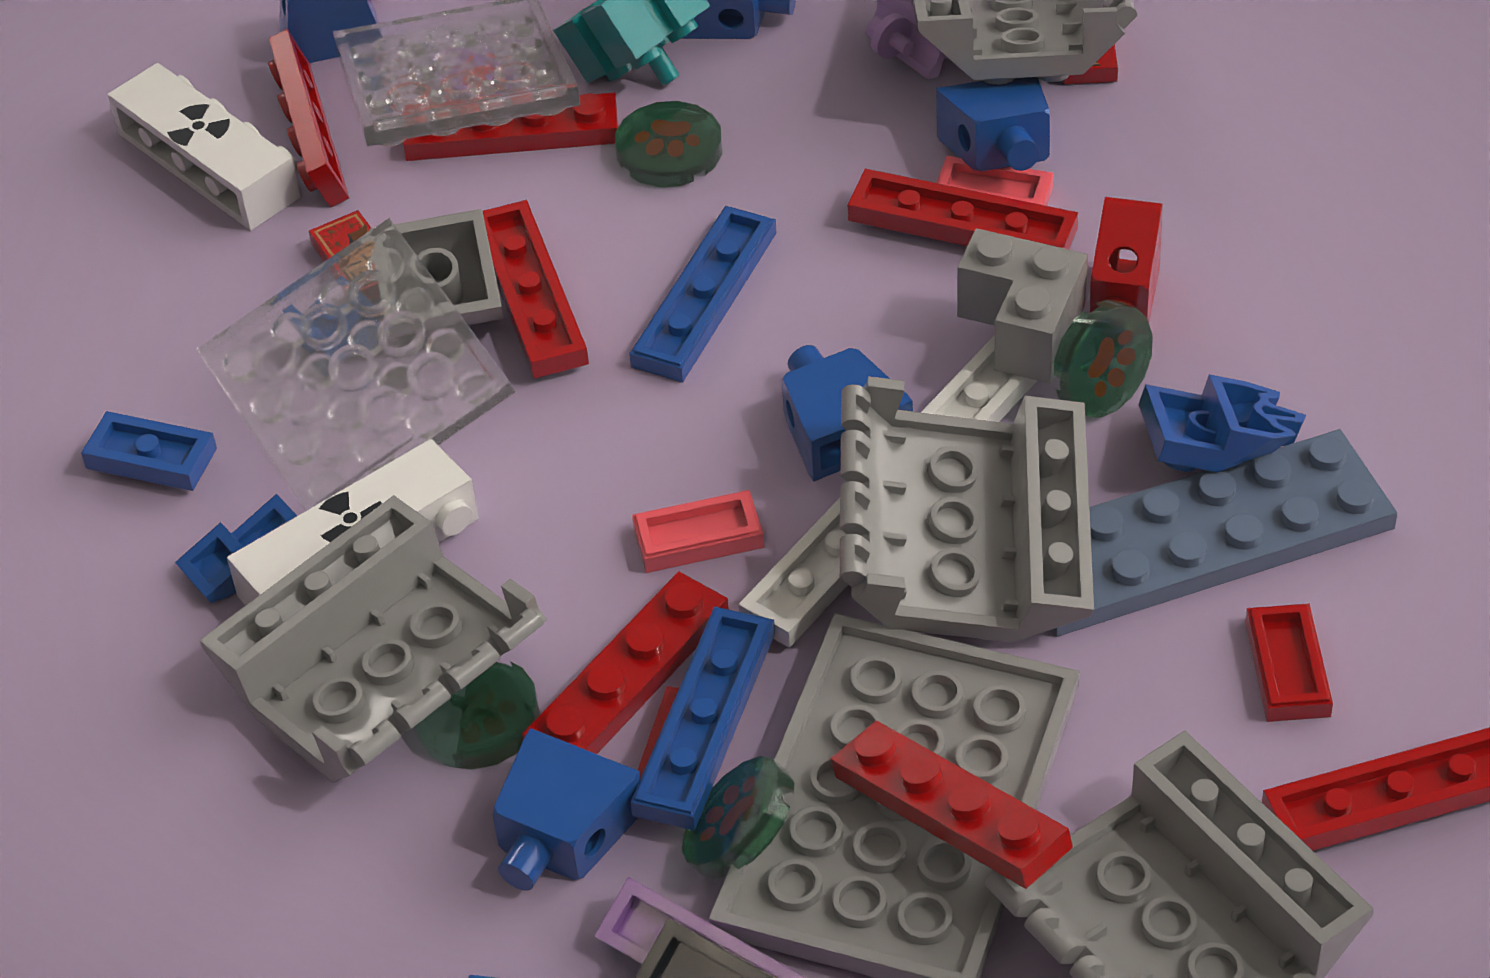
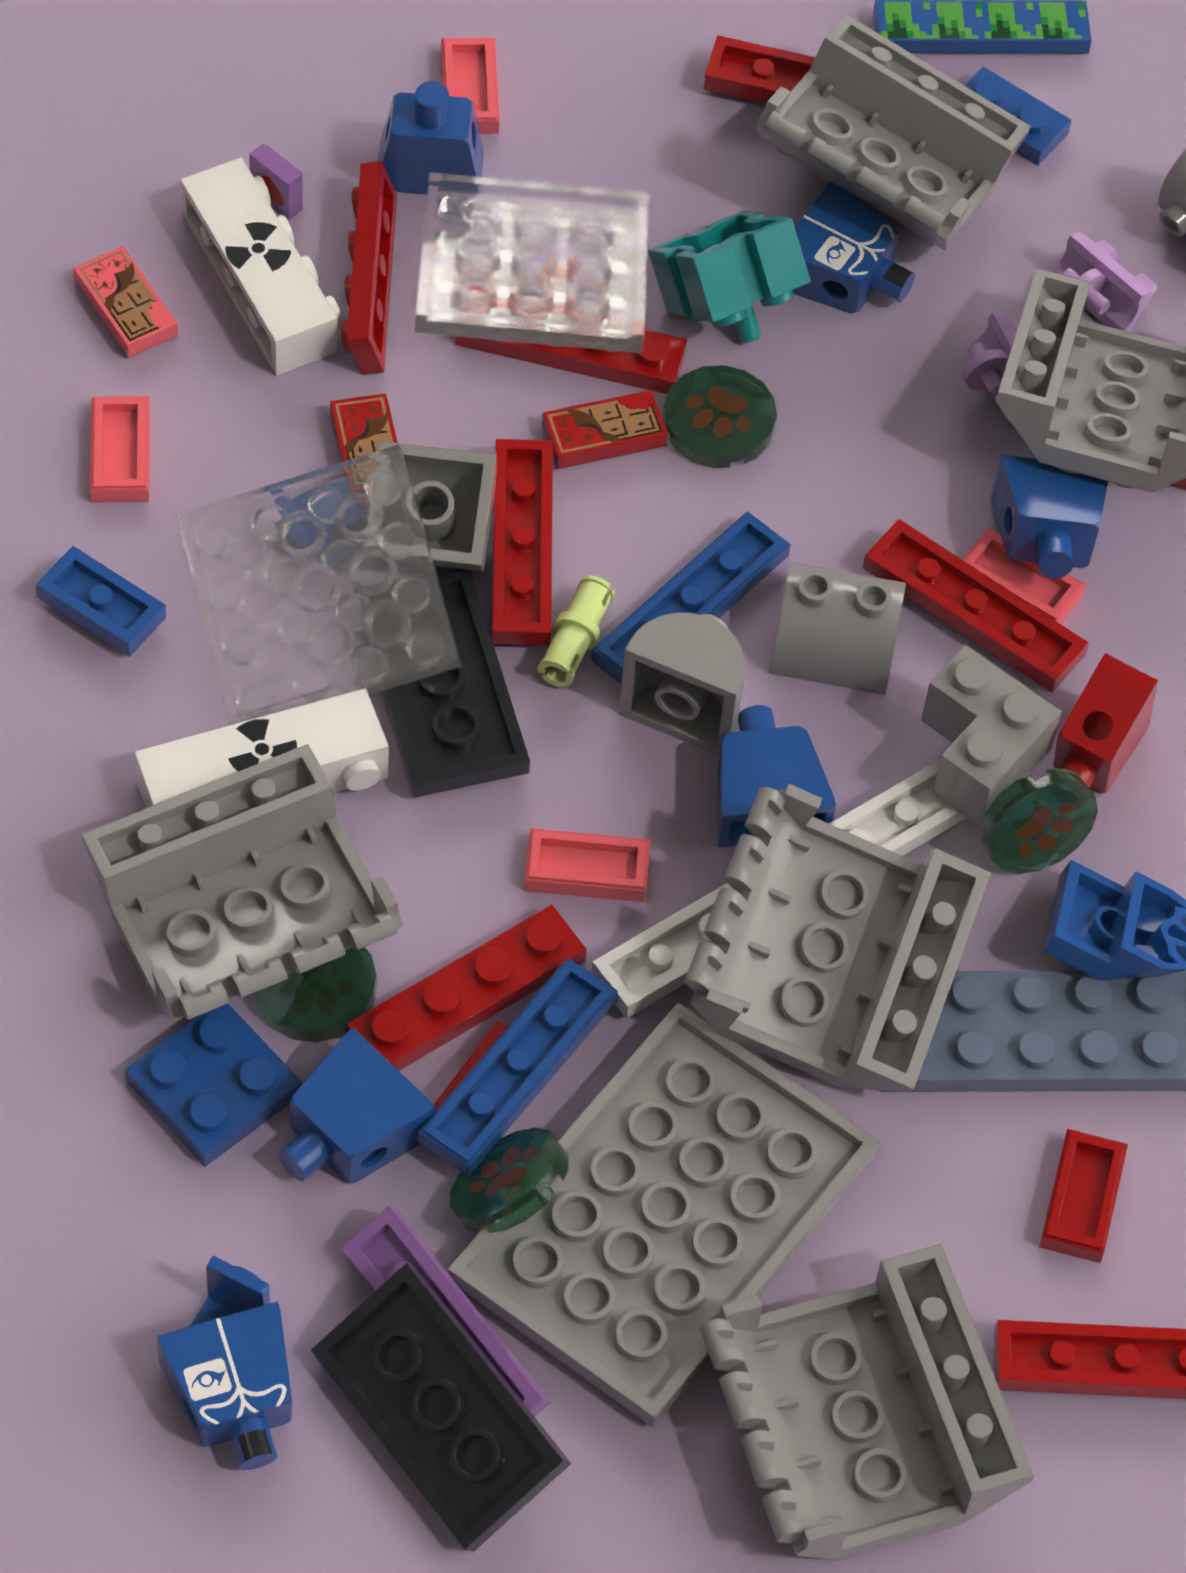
camera: 10 degrees right, 10 degrees up
(89, 211) = (125, 301): none -> tile
(124, 327) = (120, 449): none -> coral tile
(200, 70) = (281, 179): none -> medium lavender tile
(207, 560) = (138, 730): blue slope -> none
(407, 830) = (213, 1082): none -> blue plate
(527, 445) = (459, 722): none -> black plate
(570, 182) = (604, 429): none -> tile
(609, 343) = (576, 631): none -> yellowish green pin
(728, 342) = (684, 678): none -> light grey brick
(848, 268) = (837, 628): none -> light grey brick
(952, 804) = (700, 1240): red plate -> none

